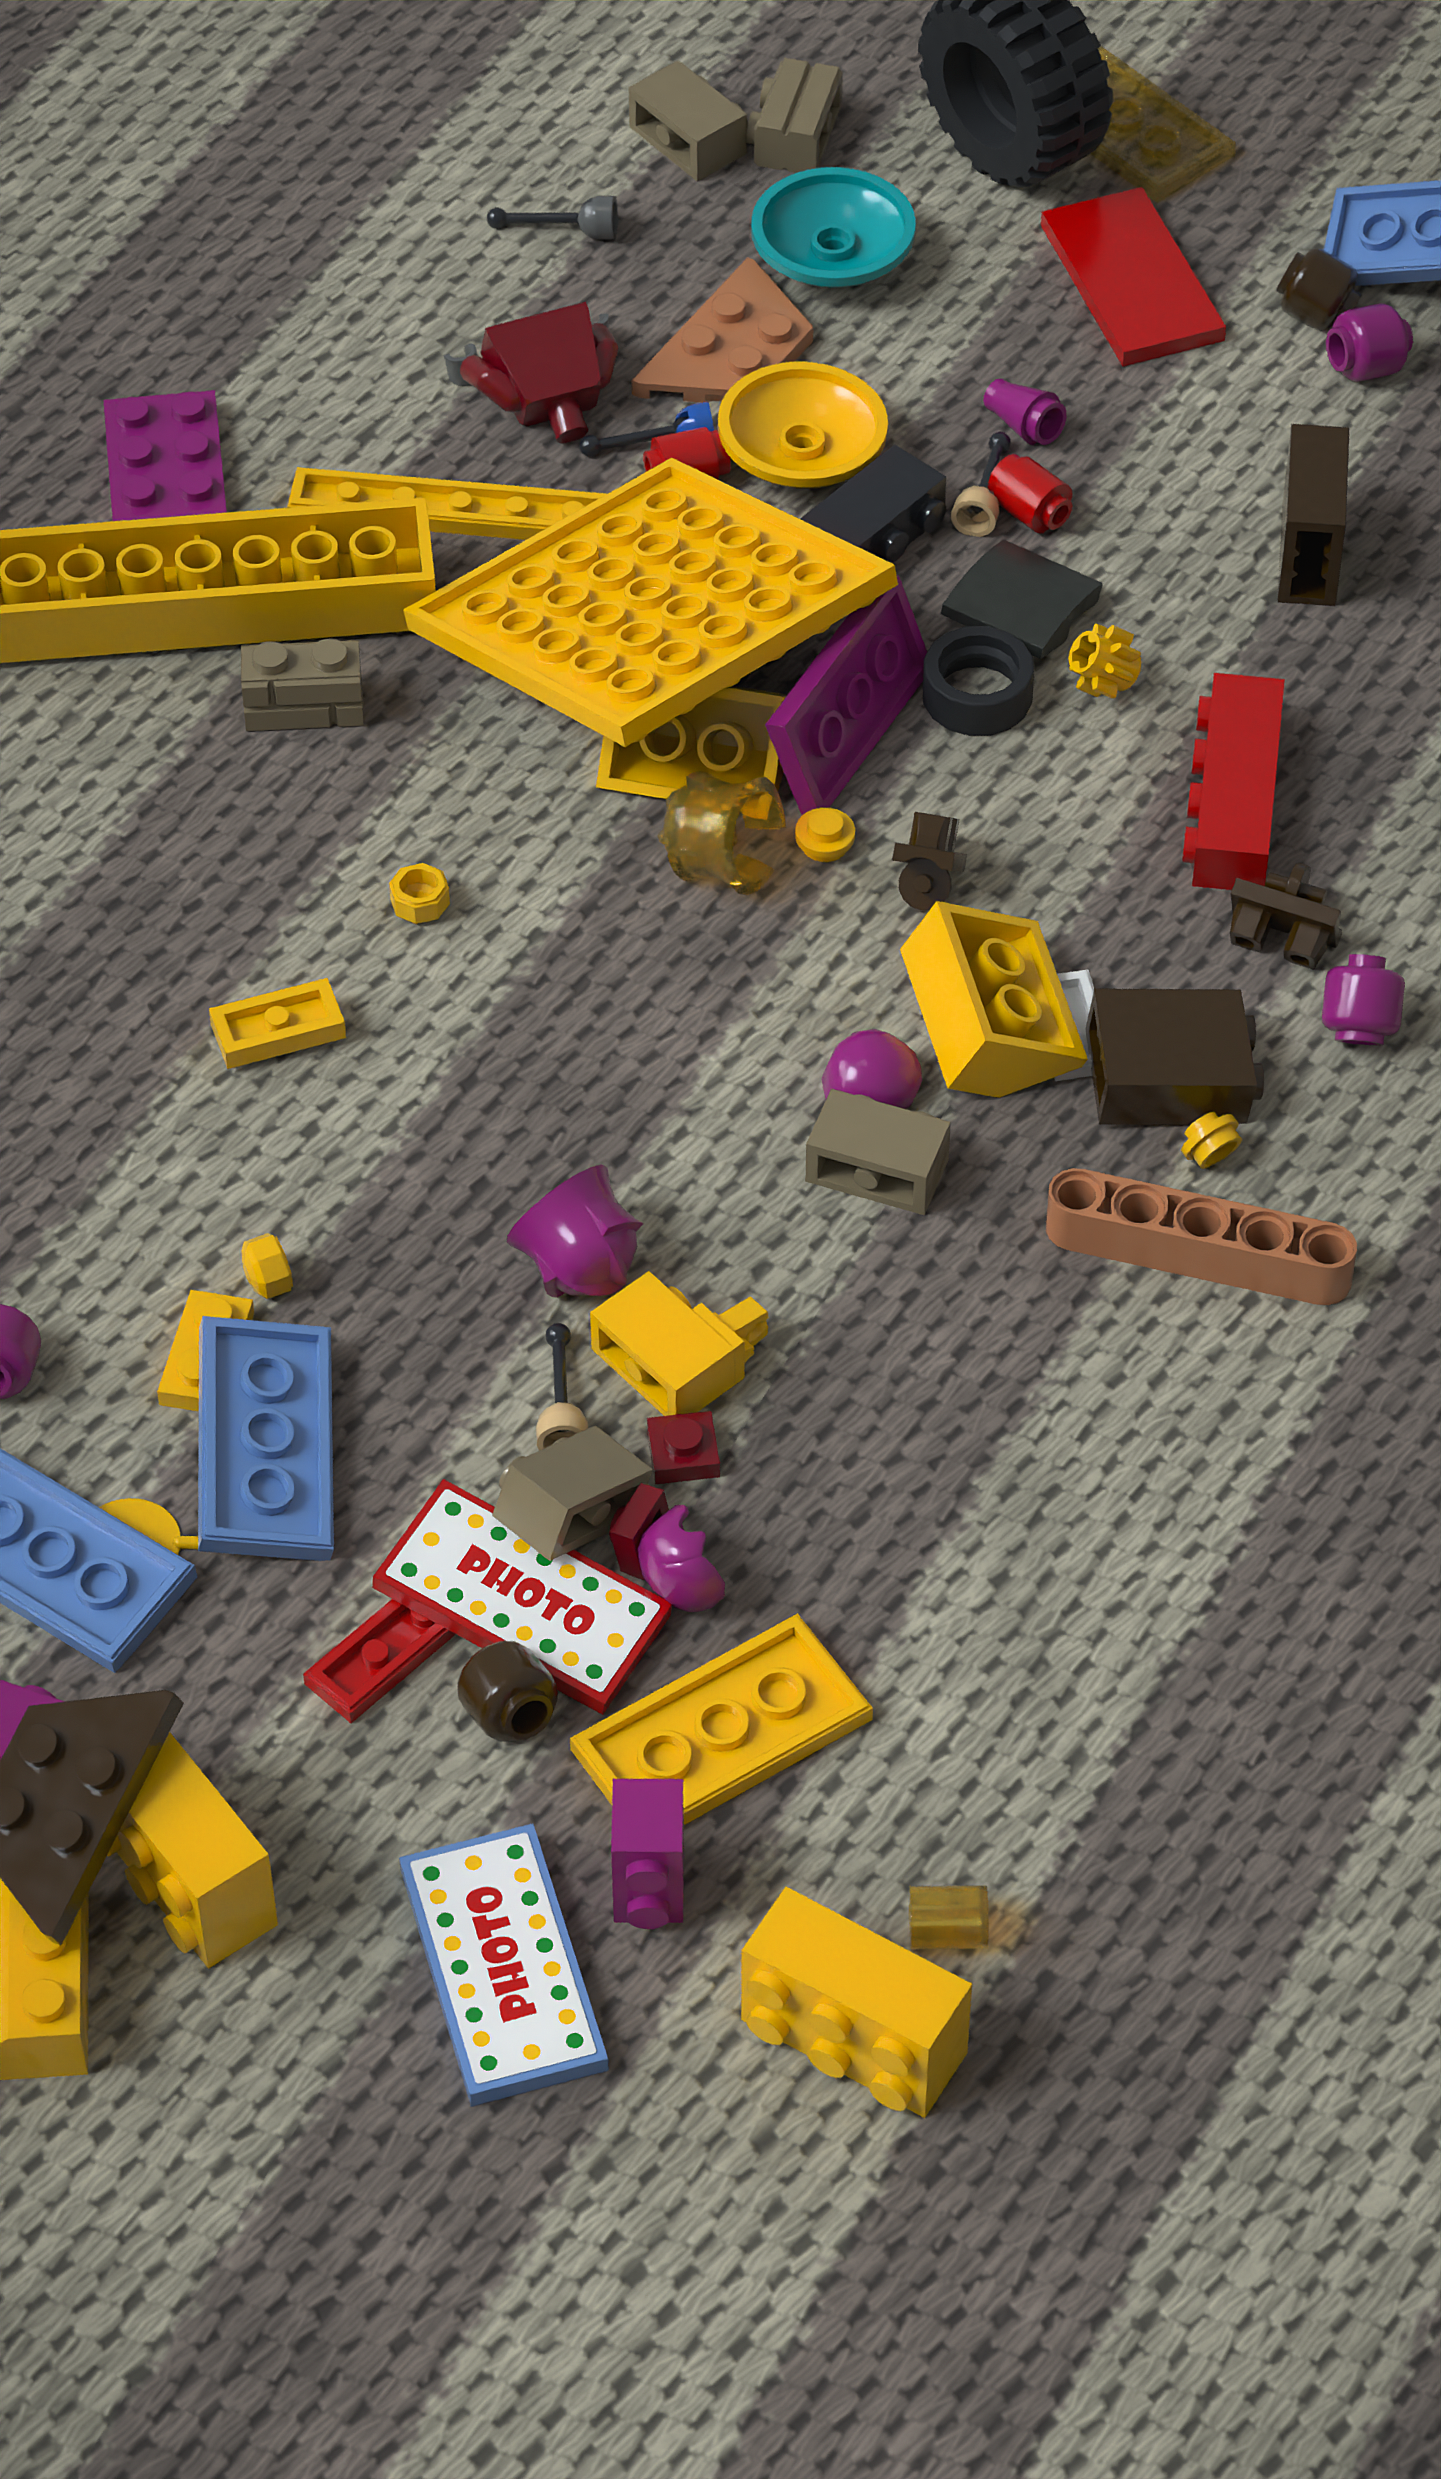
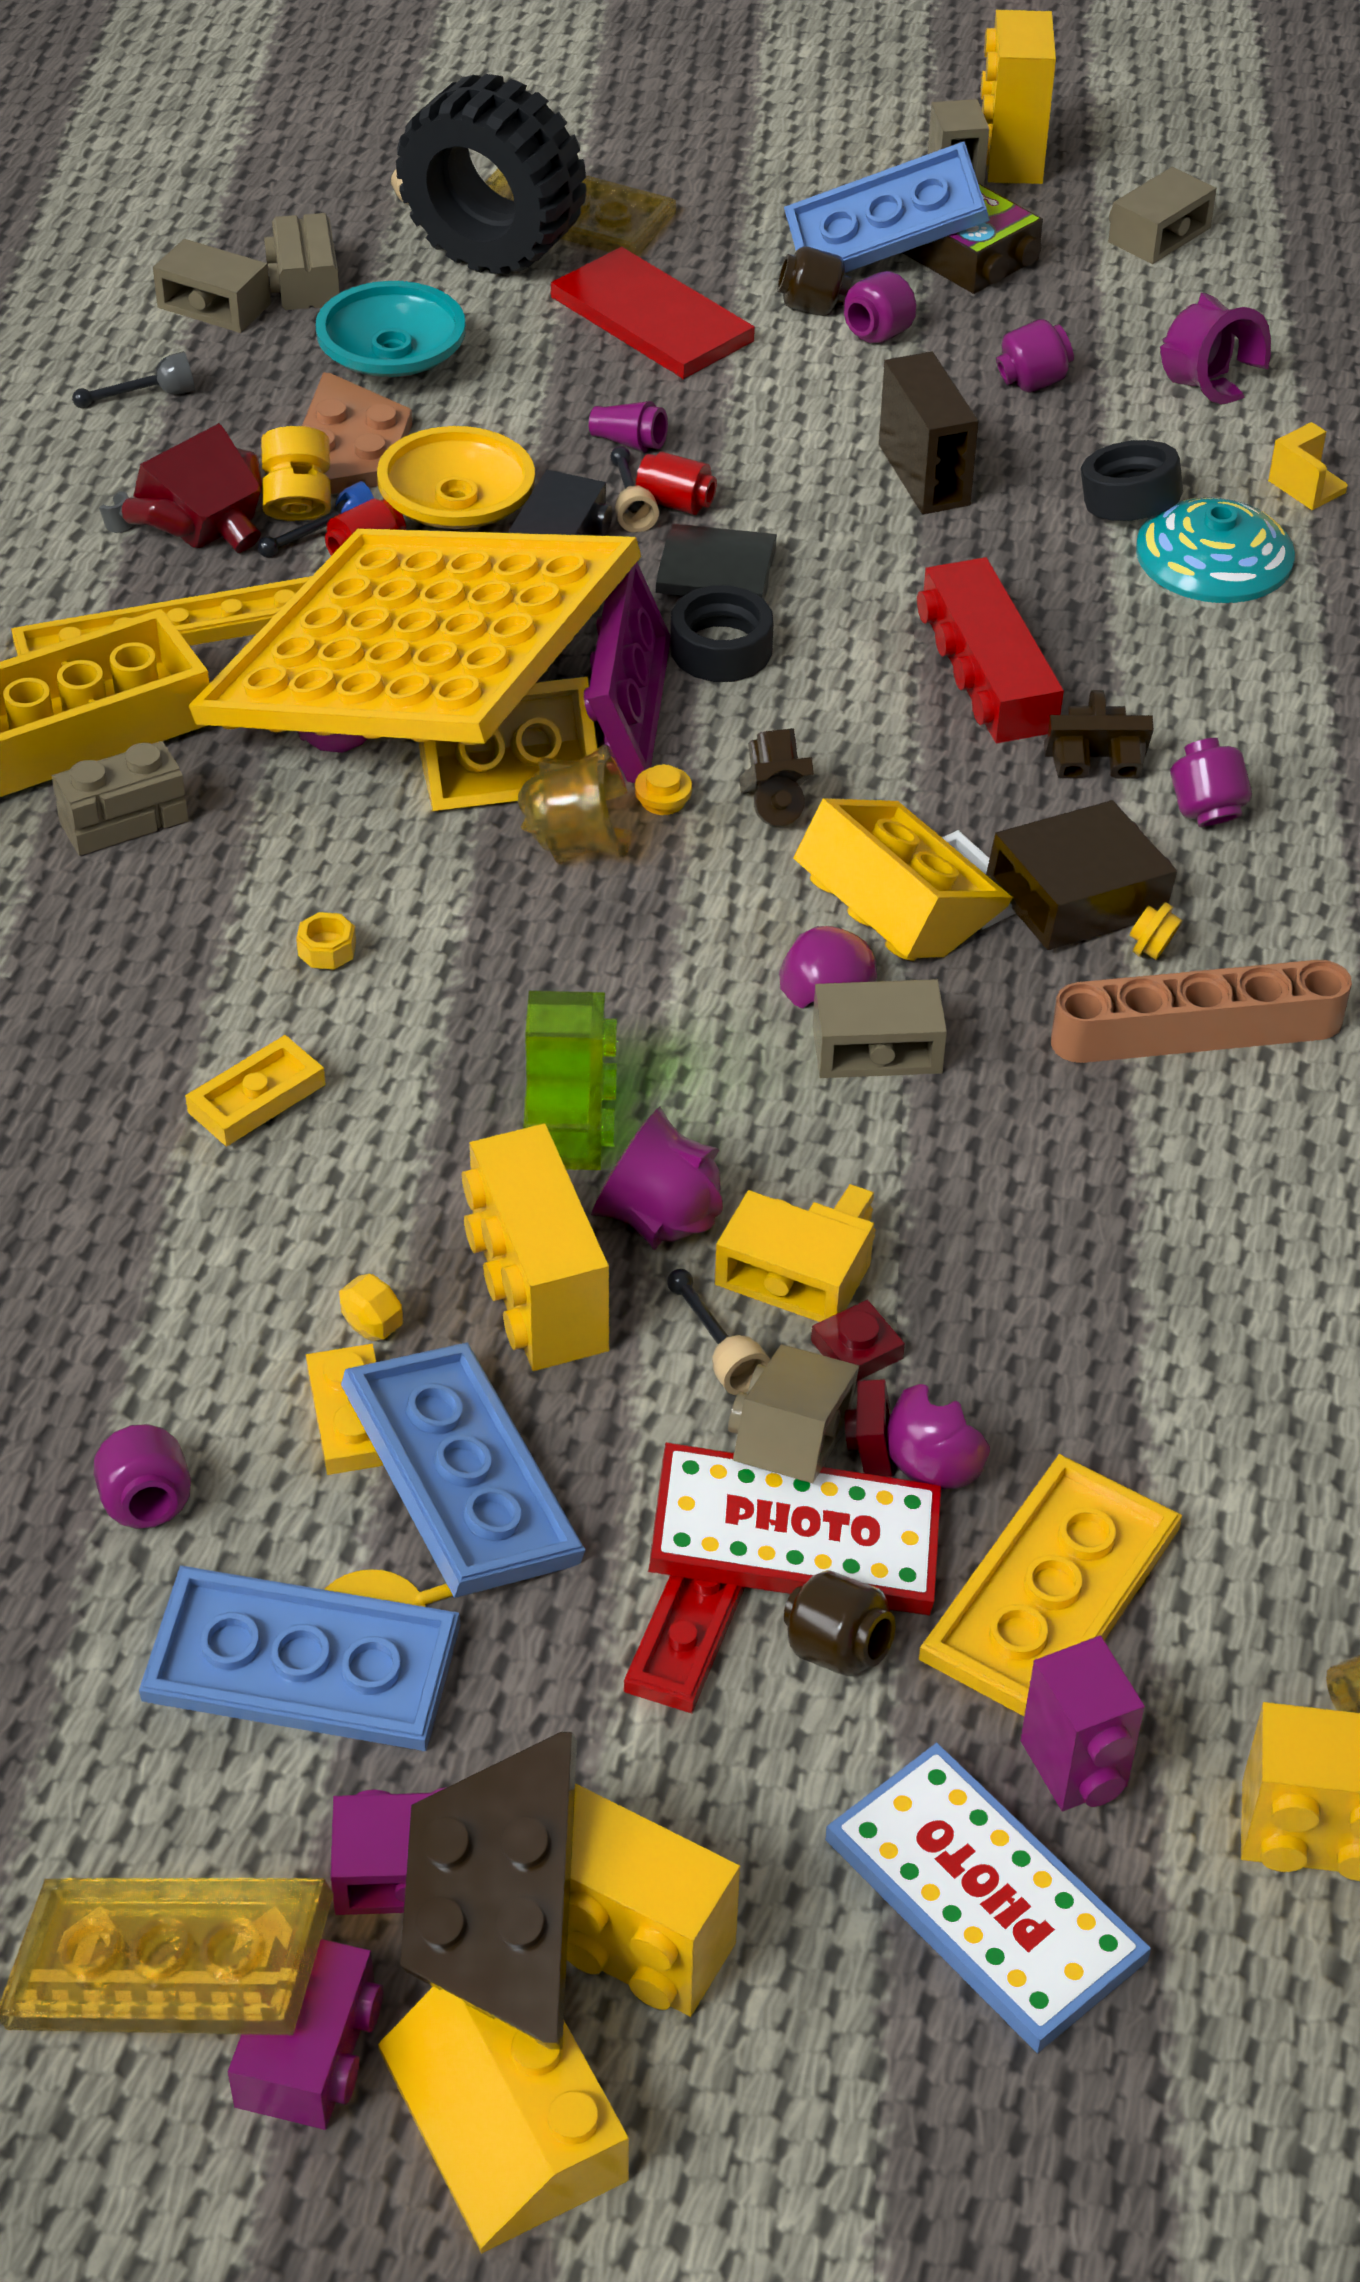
camera: 25 degrees left, 5 degrees down
(428, 1261) = (537, 1247): none -> yellow brick
(552, 1108) = (569, 1073): none -> clear neon green brick
(651, 358) = (295, 469): none -> yellow wheel
(1104, 661) = (821, 588): yellow gear -> none

